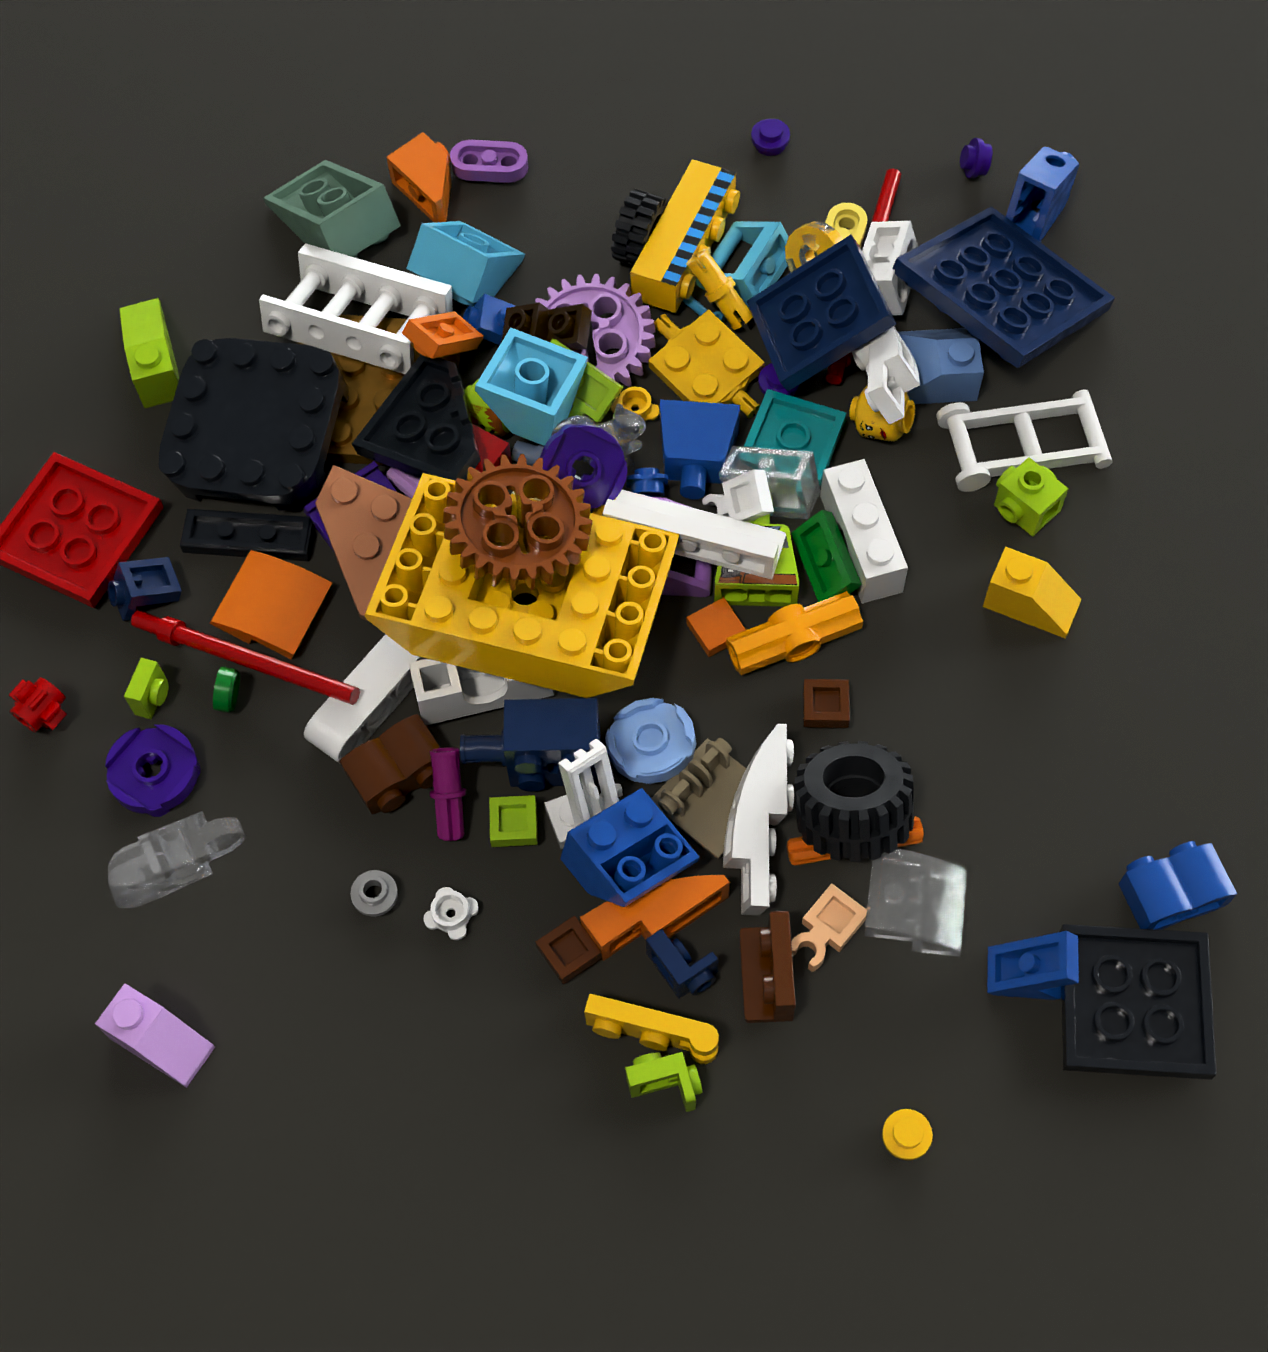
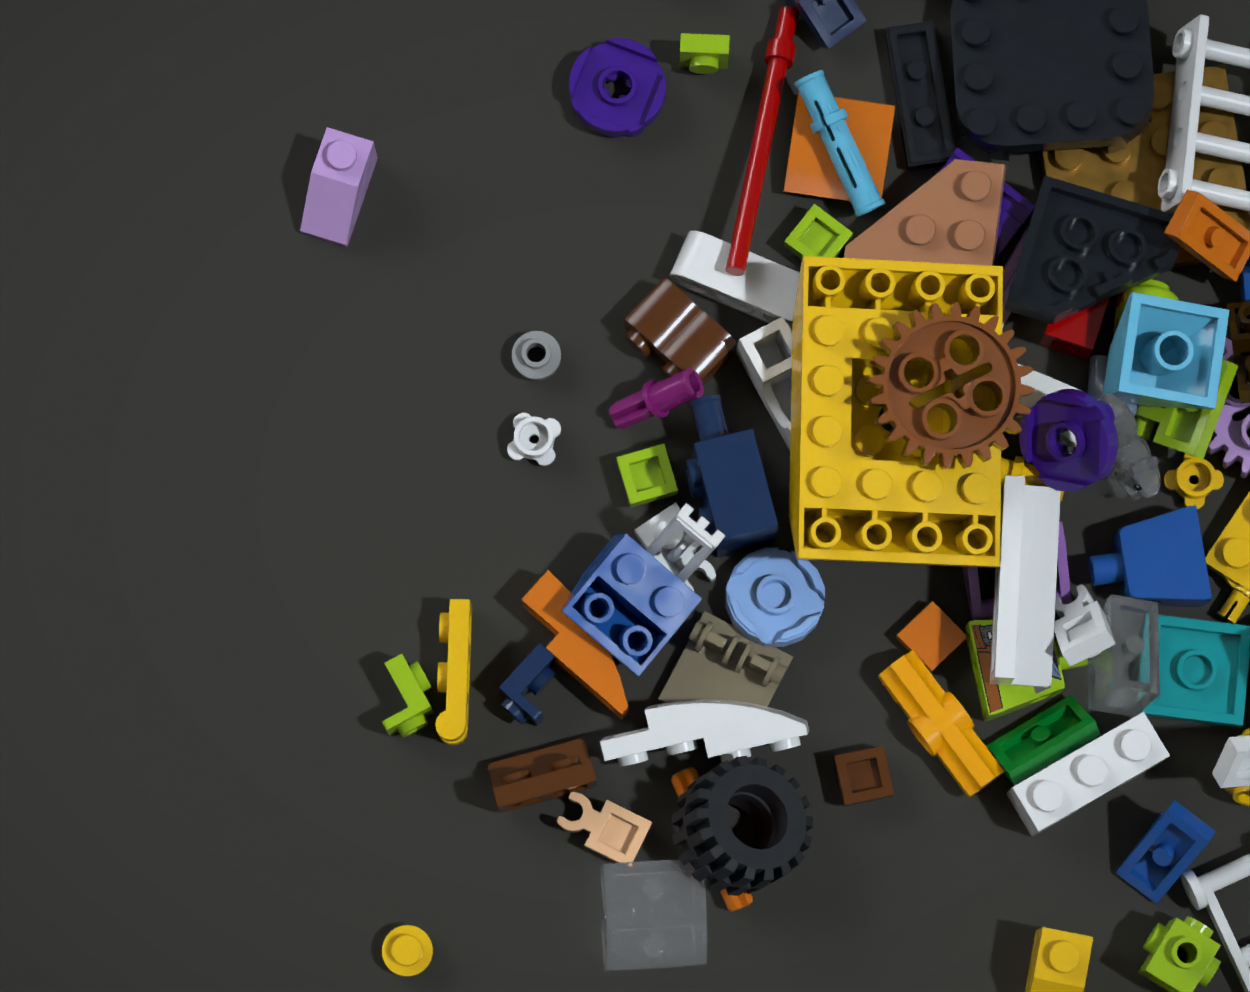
camera: 75 degrees right, 15 degrees up
(170, 858) = (521, 140): clear piece -> none
(214, 597) = (839, 142): none -> medium azure pin
(226, 689) = (724, 134): green tile -> none
(345, 636) = (818, 235): none -> lime plate
(568, 949) = (519, 566): reddish brown plate -> none
(647, 482) = (1091, 517): blue plate -> none
(938, 488) = (1165, 851): none -> blue slope

